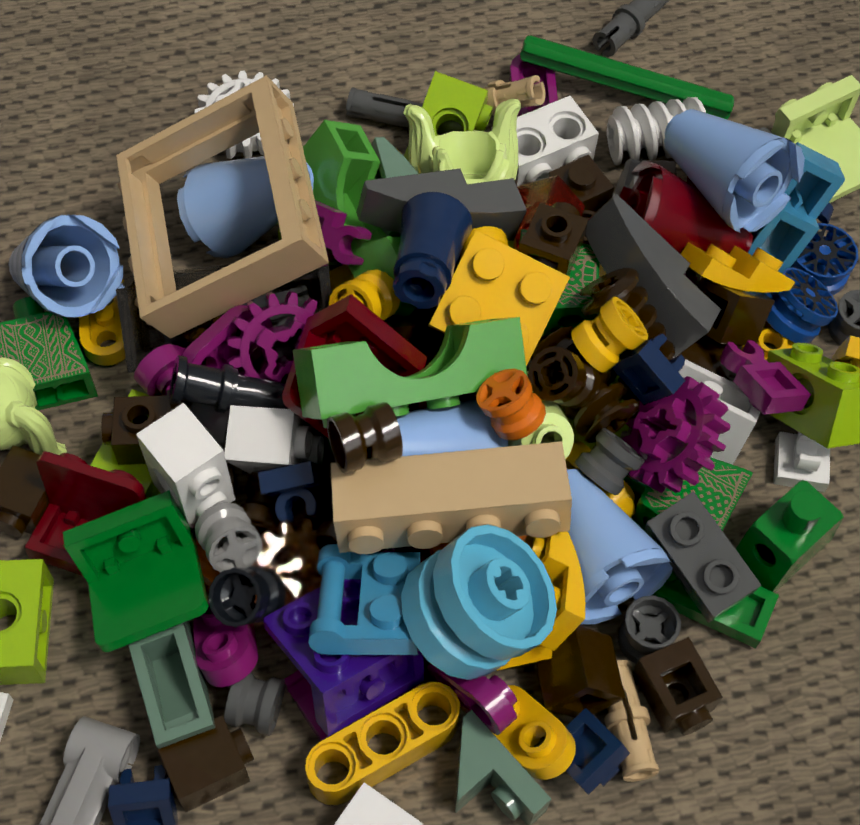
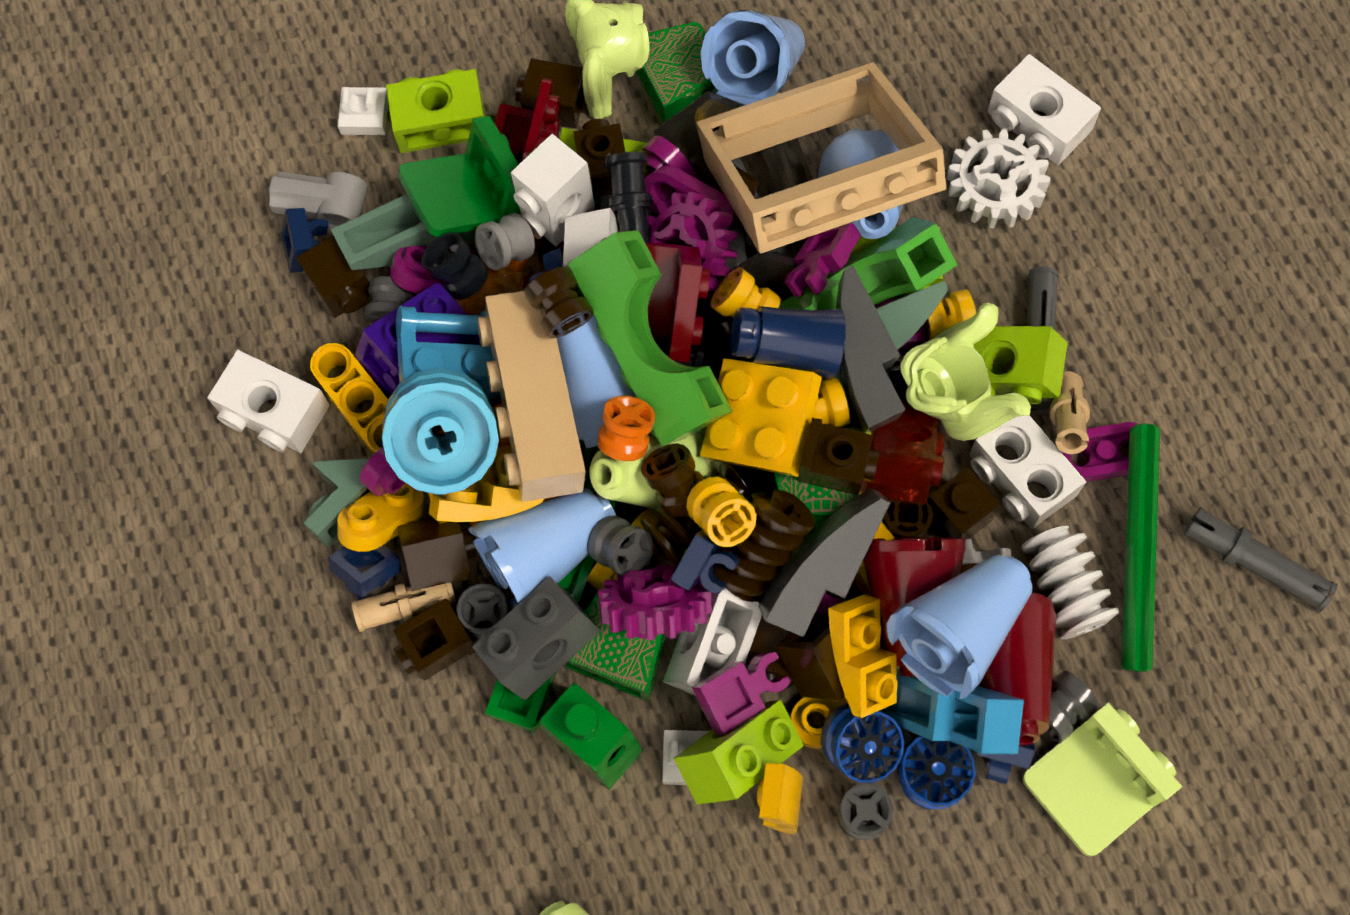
camera: 90 degrees right, 10 degrees up
(180, 67) = (1038, 88): none -> white brick

